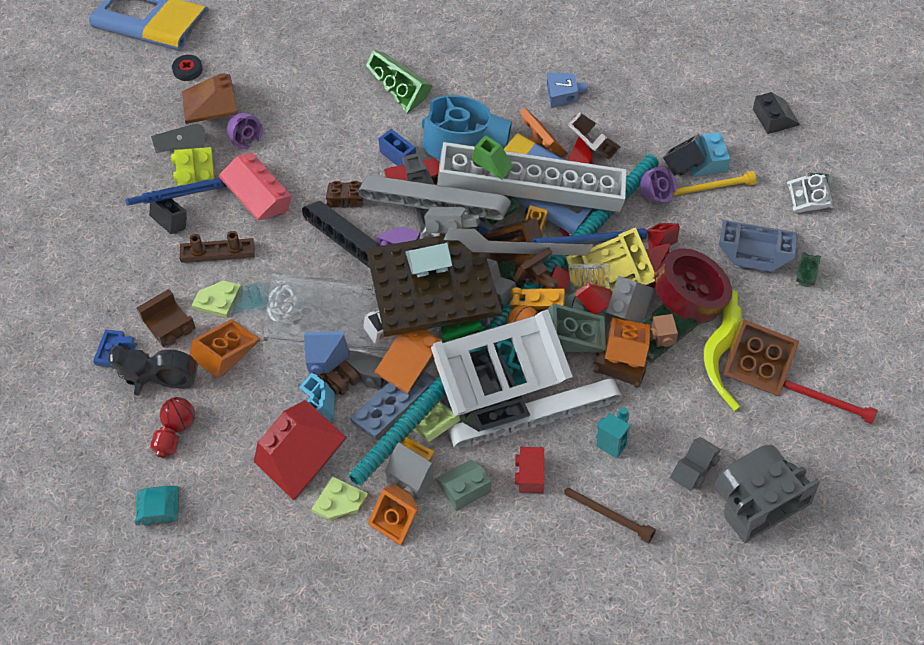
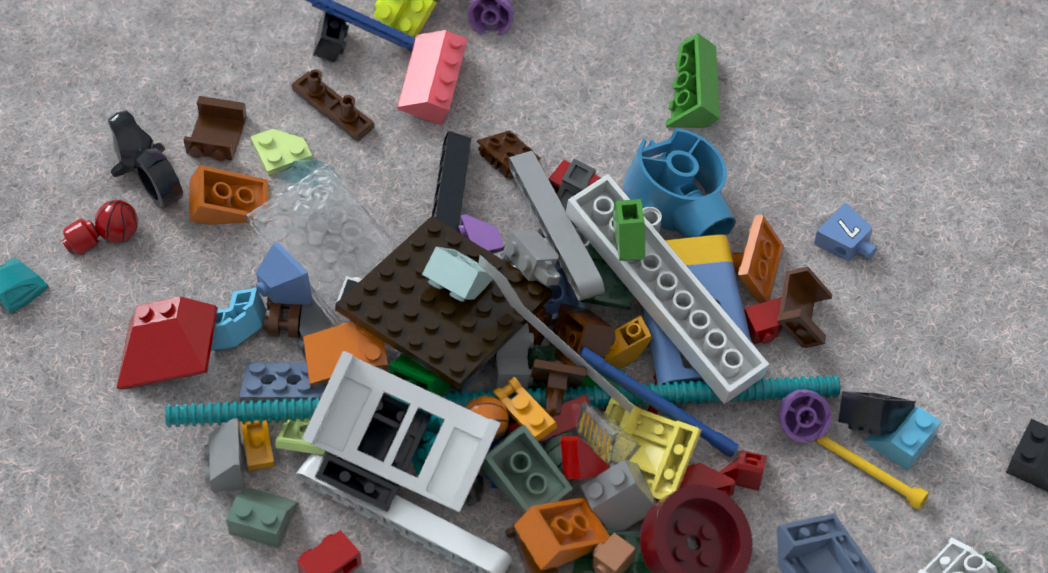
camera: 45 degrees right, 0 degrees up
(110, 339) = (150, 110): blue plate -> none
(339, 500) = (147, 425): yellowish green plate -> none
(394, 513) = (172, 478): orange slope -> none
(395, 147) = (603, 150): blue brick -> none

